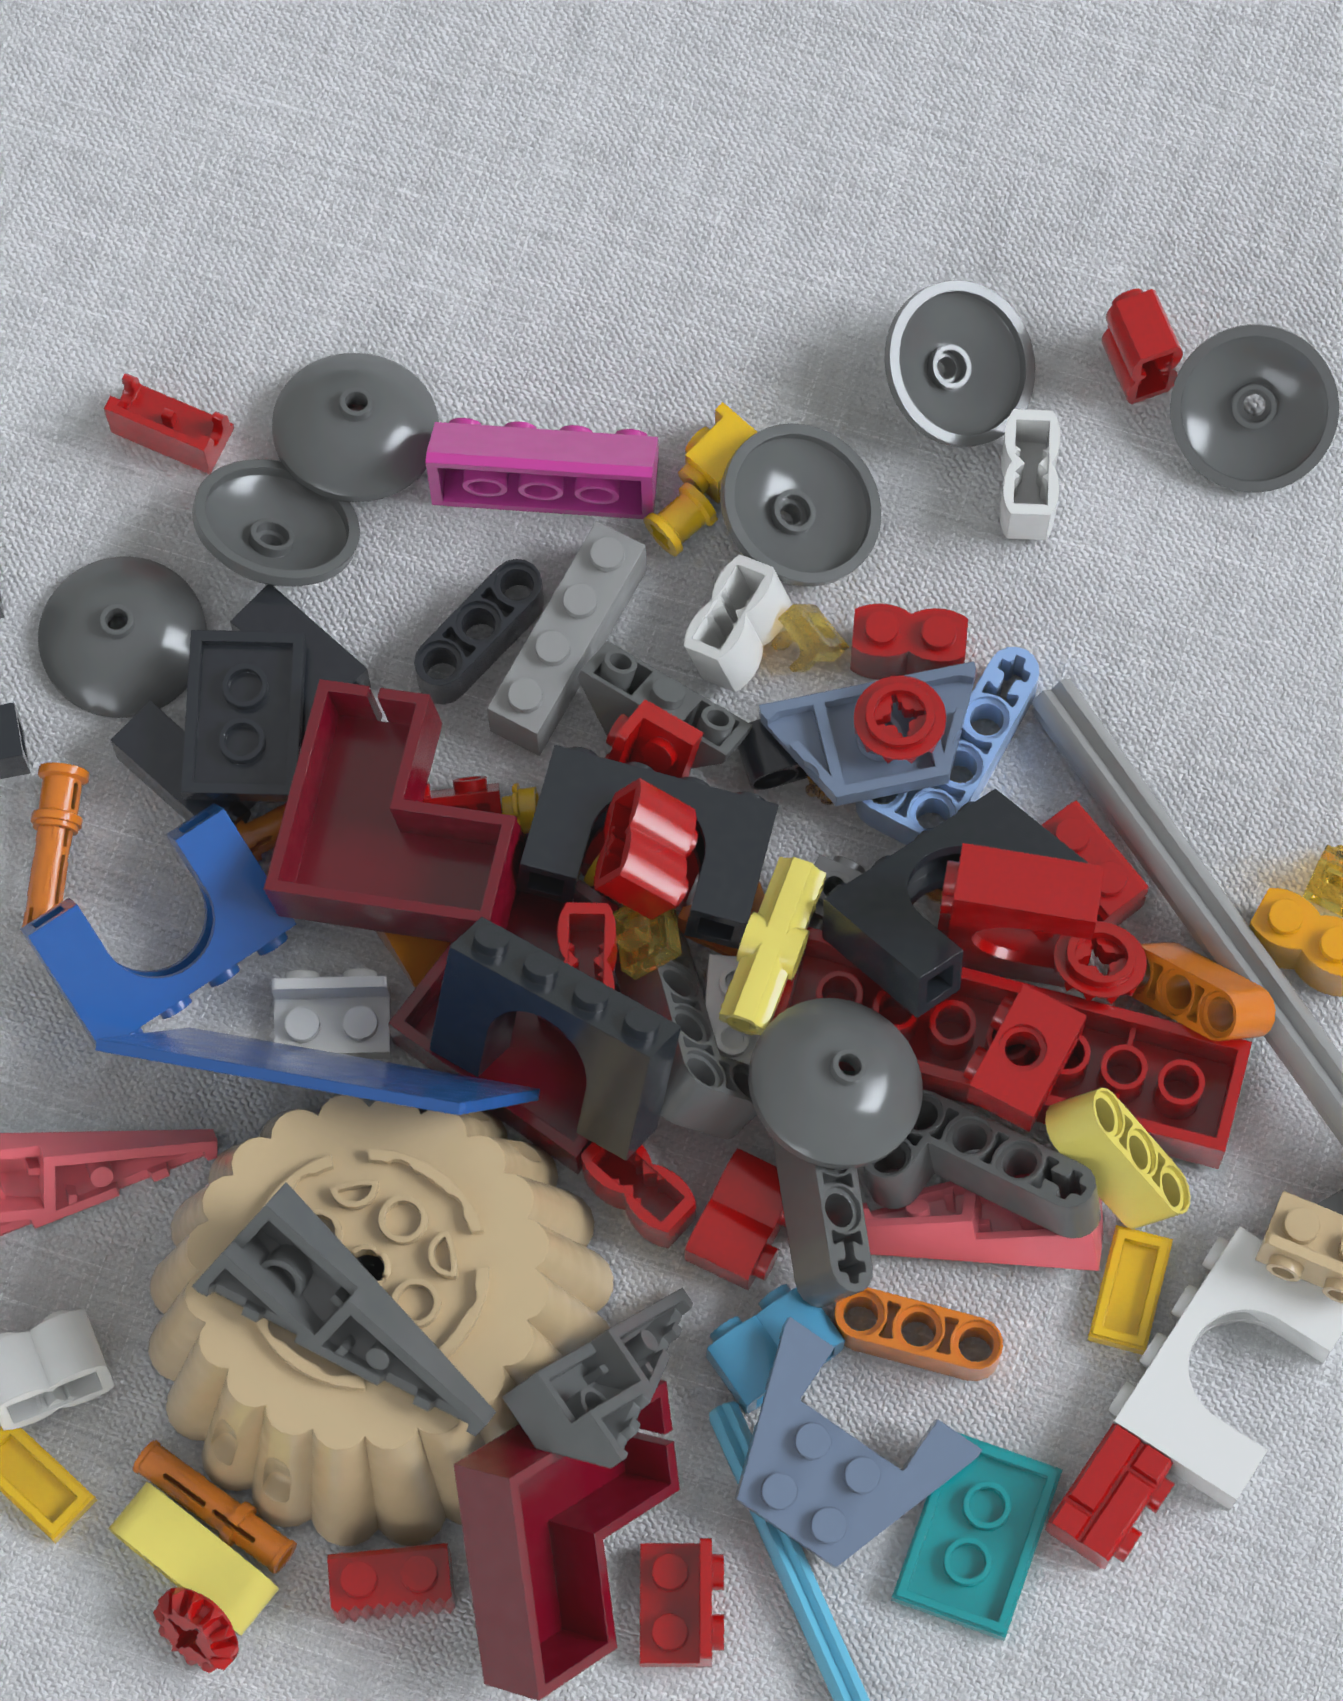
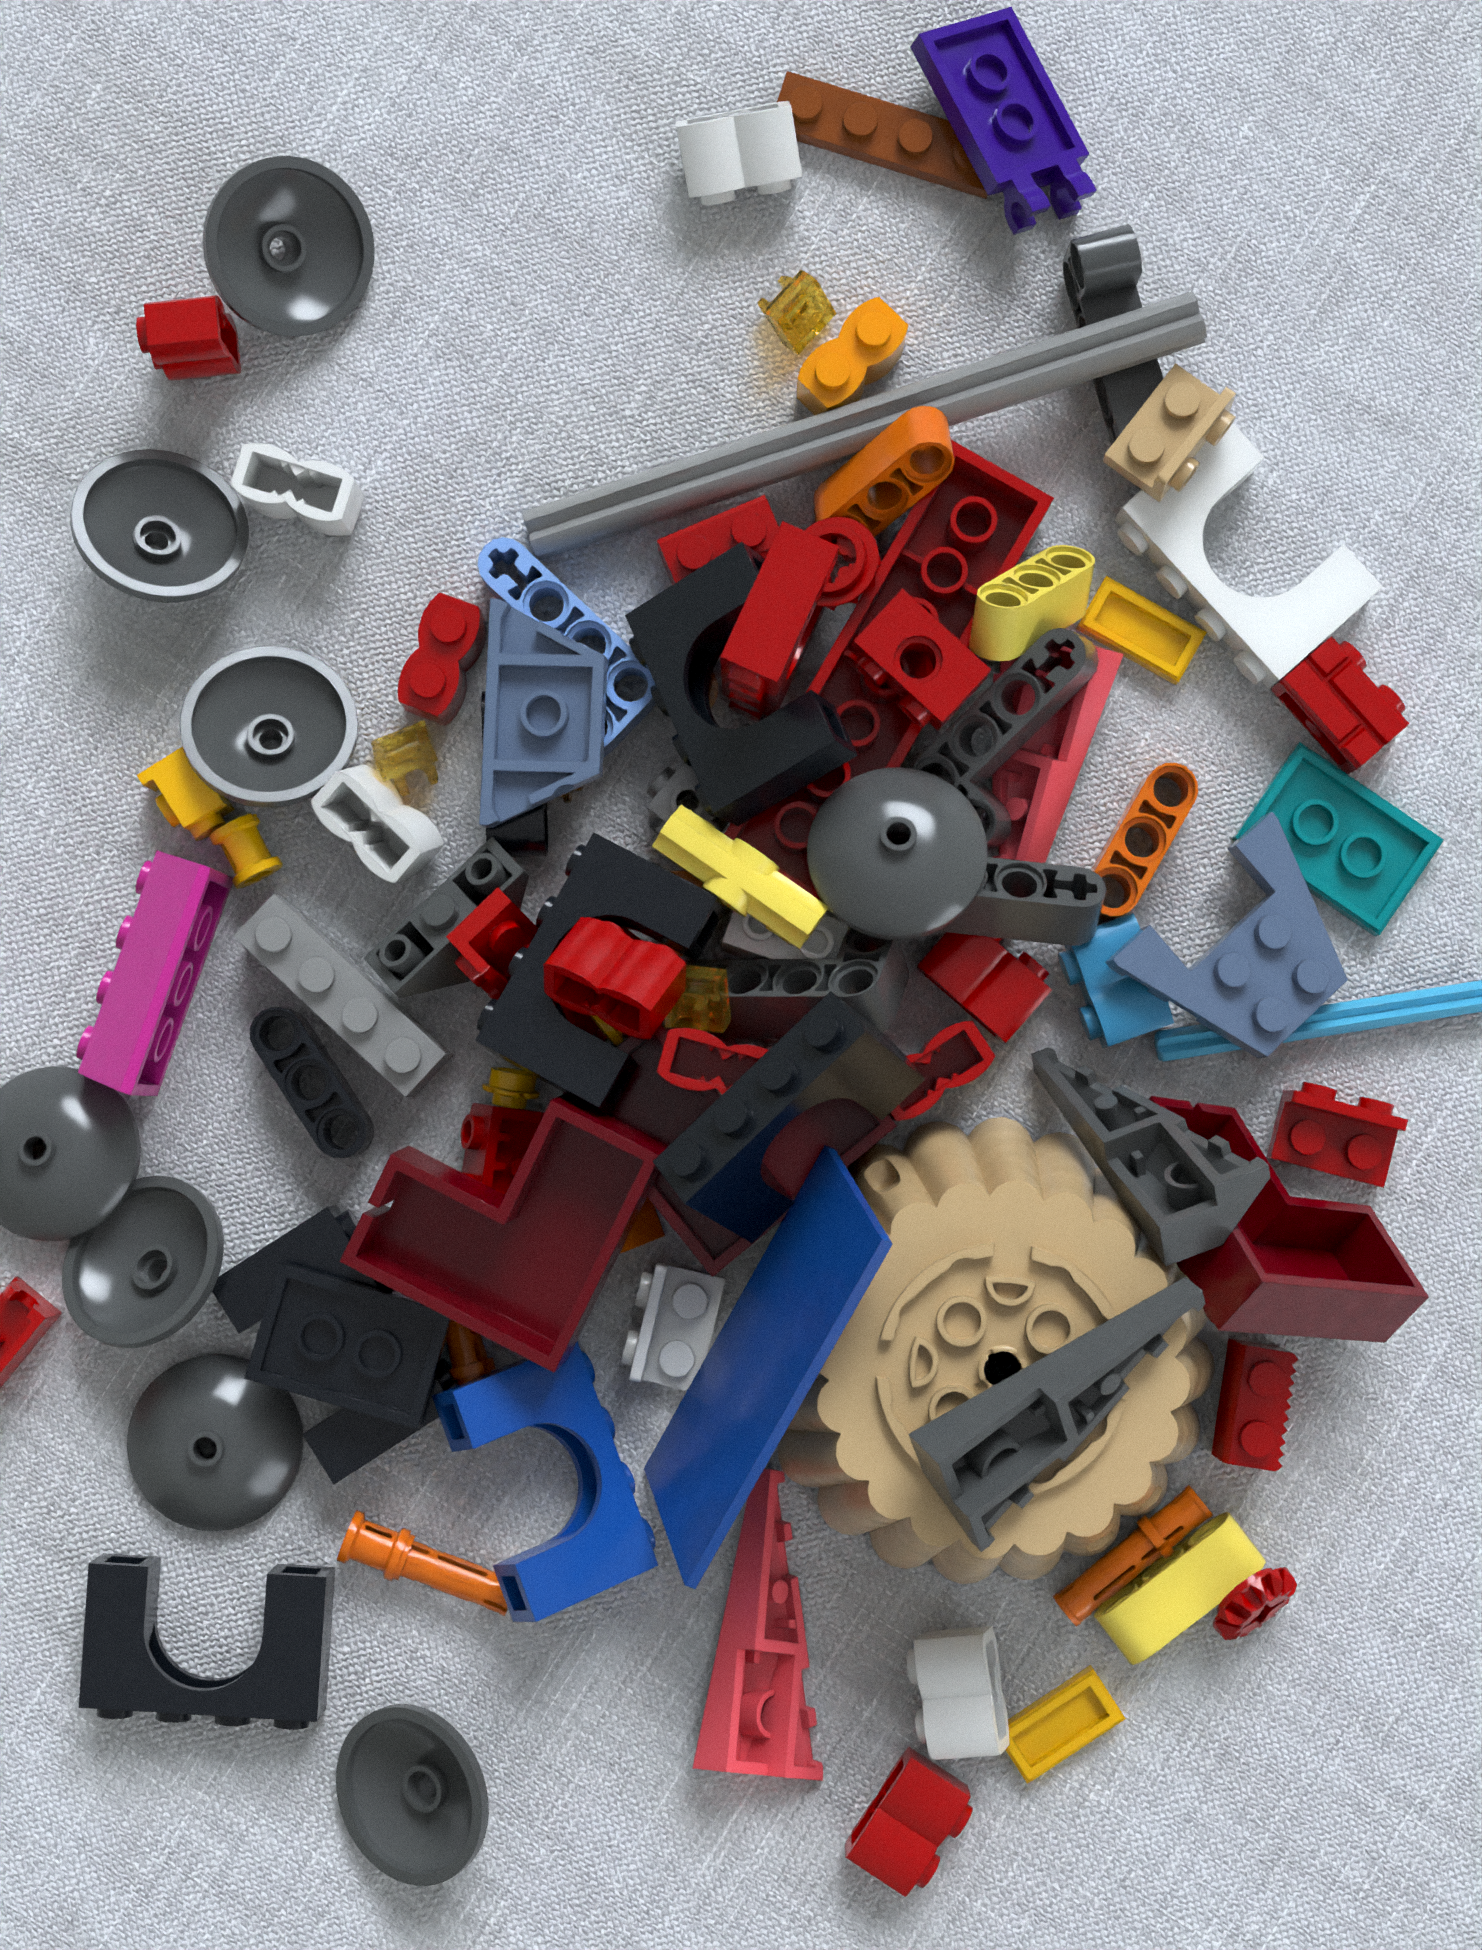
camera: 75 degrees left, 15 degrees up
(914, 700) = (518, 668): red gear -> none

